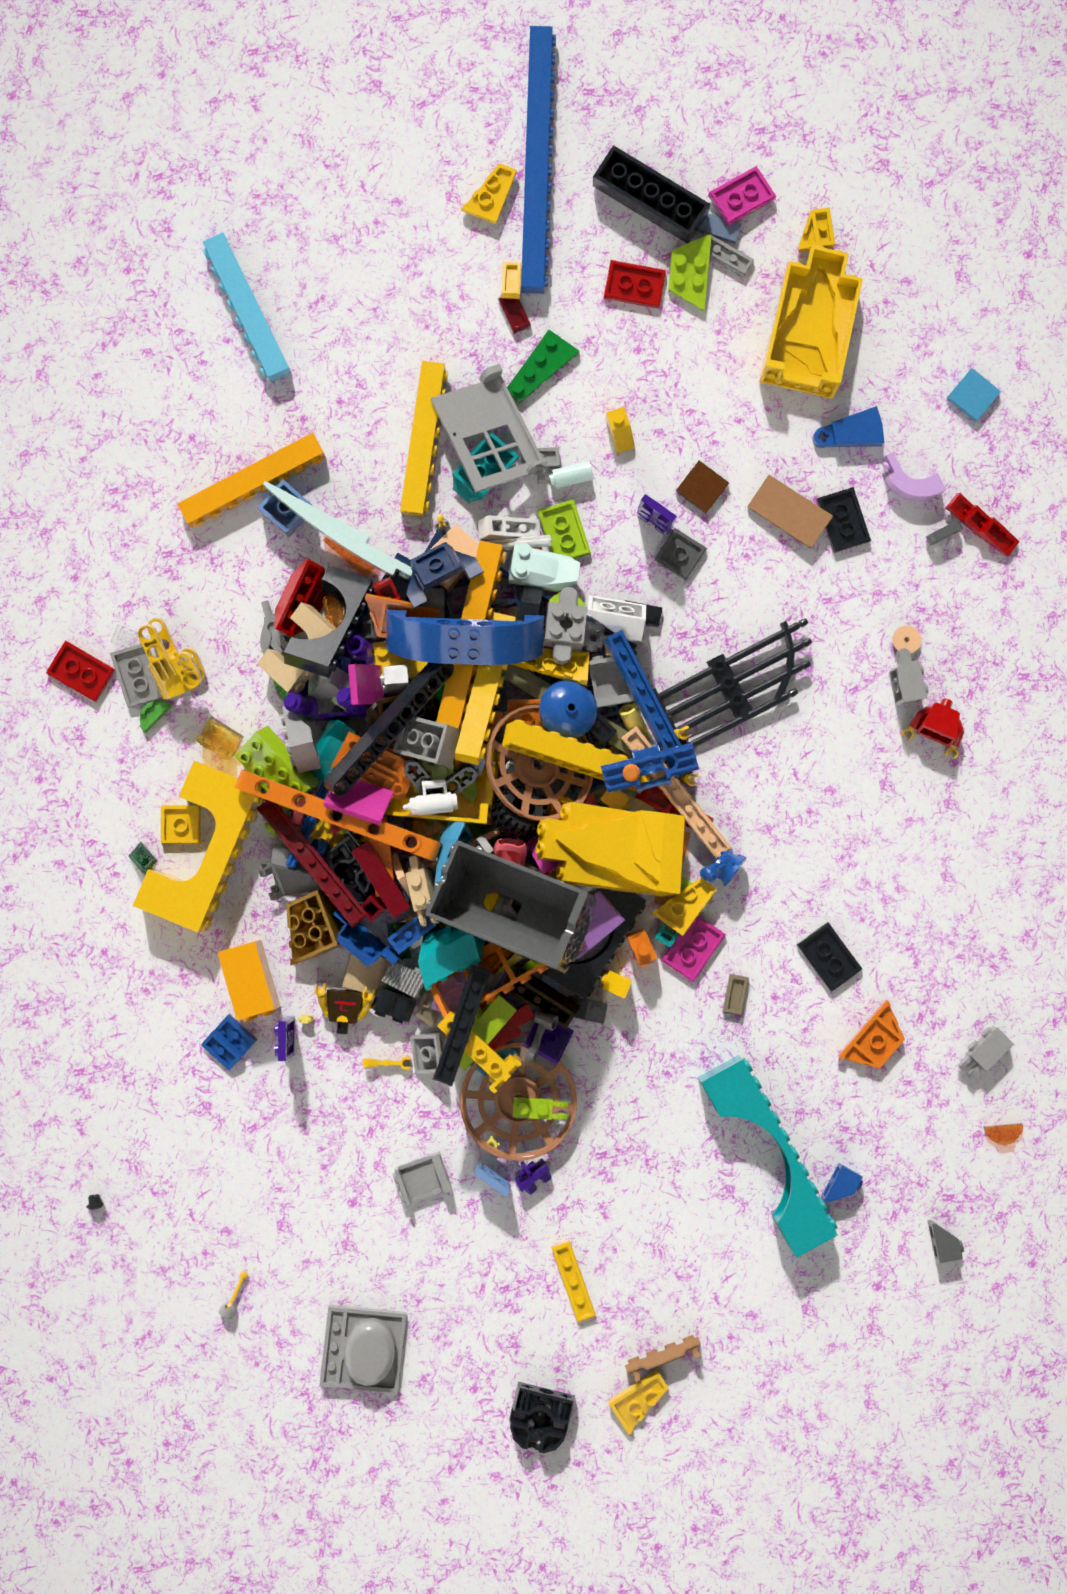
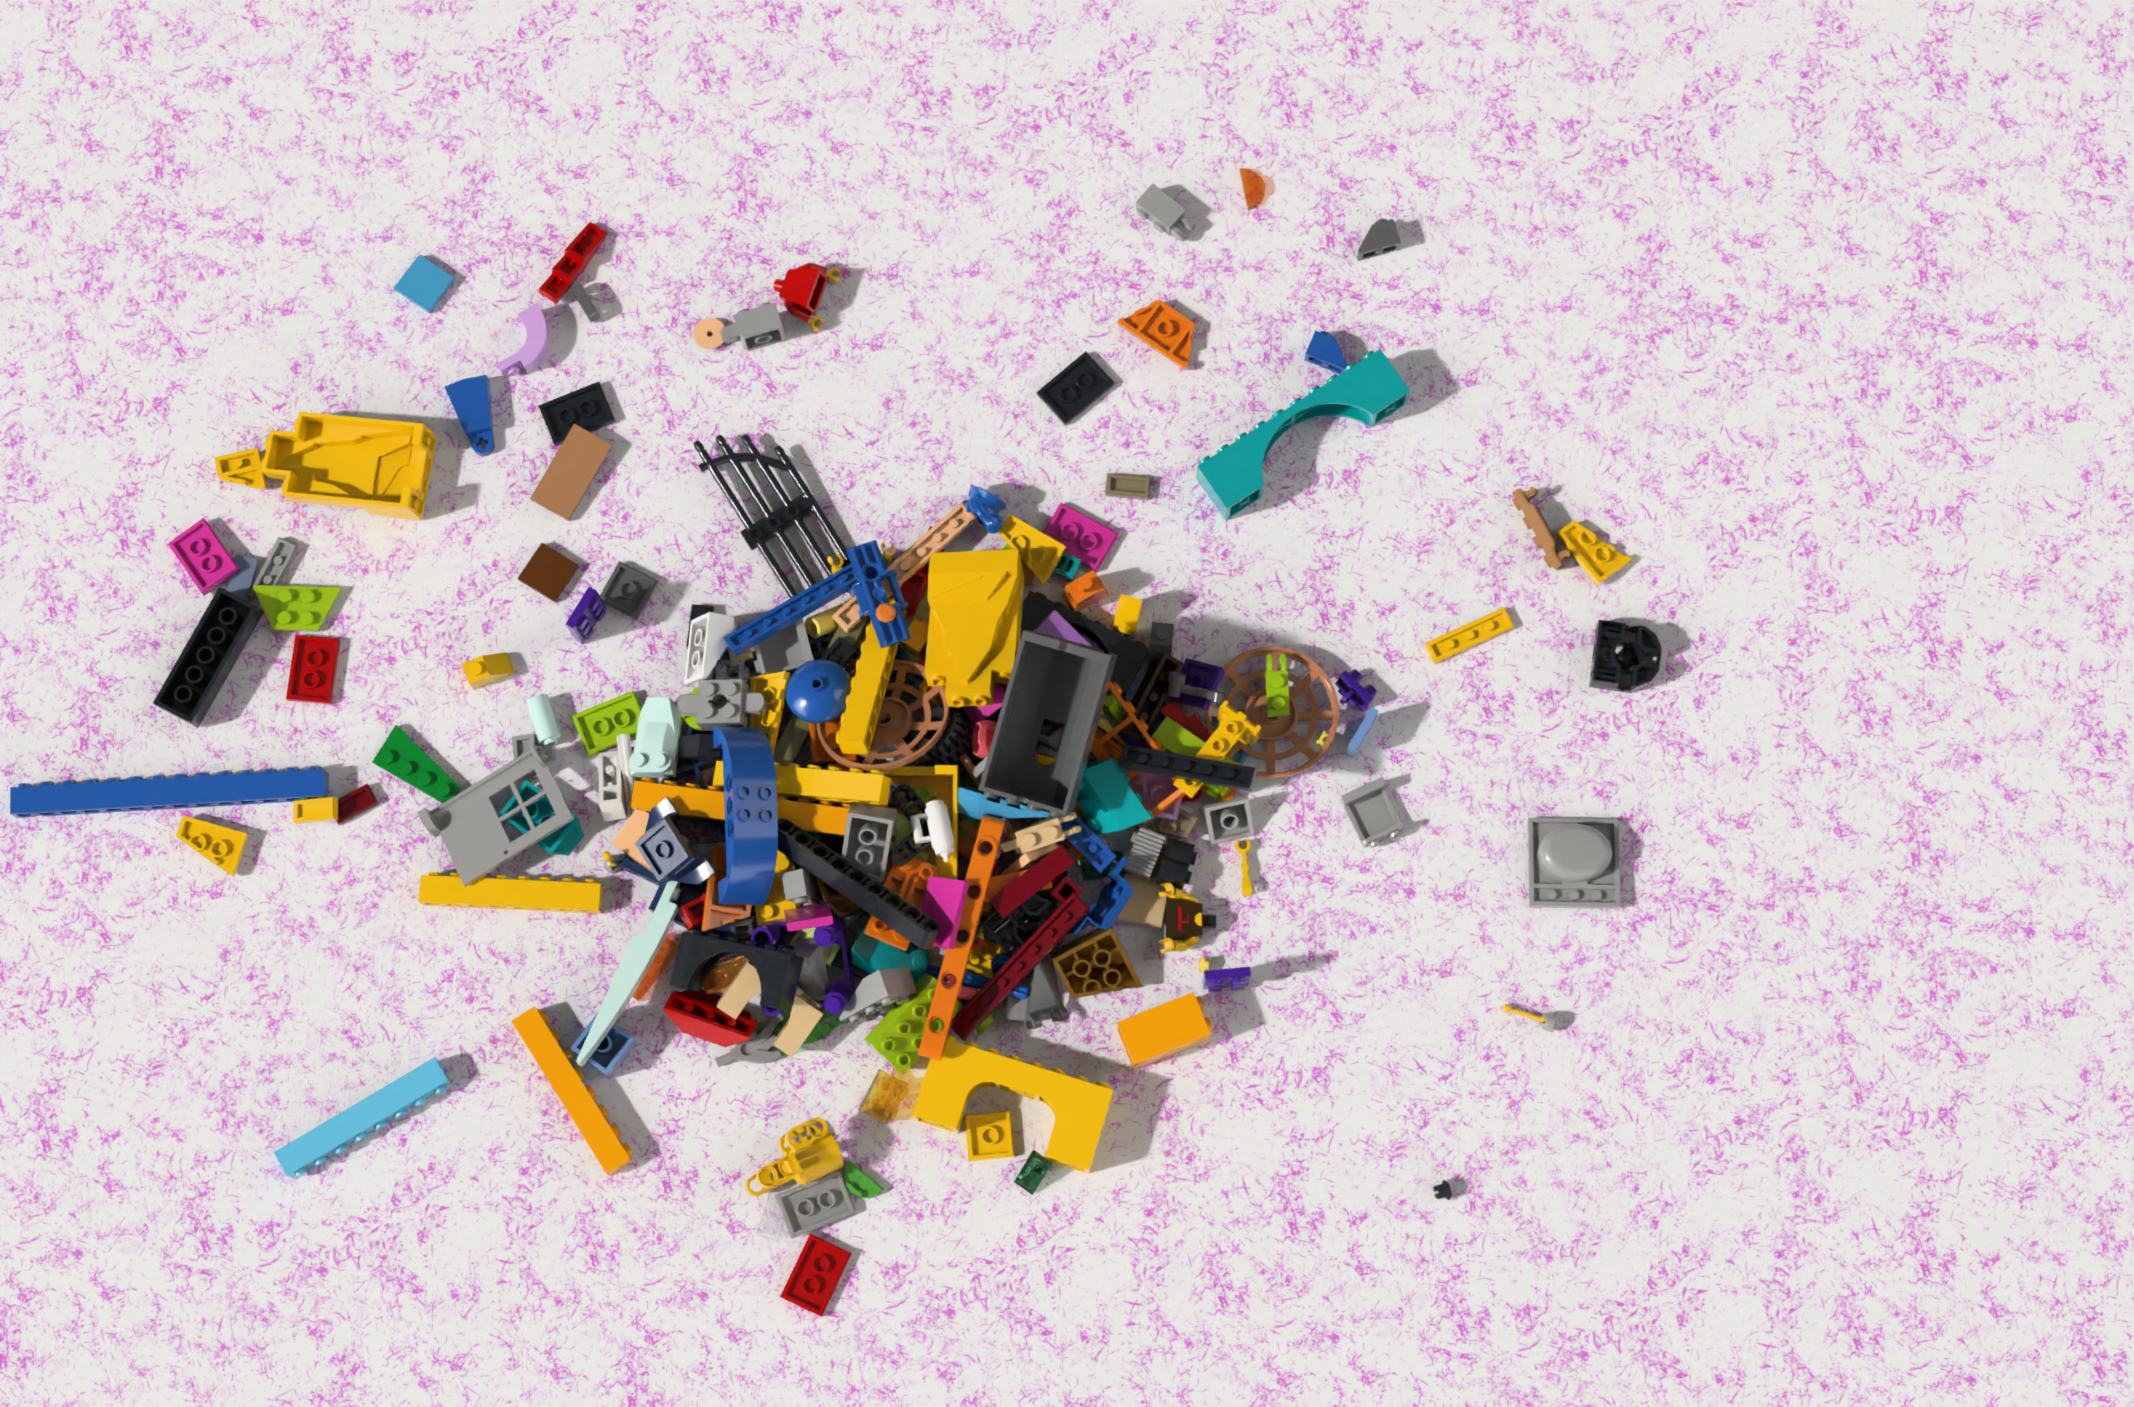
camera: 90 degrees left, 10 degrees down
(229, 1042) = (1239, 1052): blue slope -> none

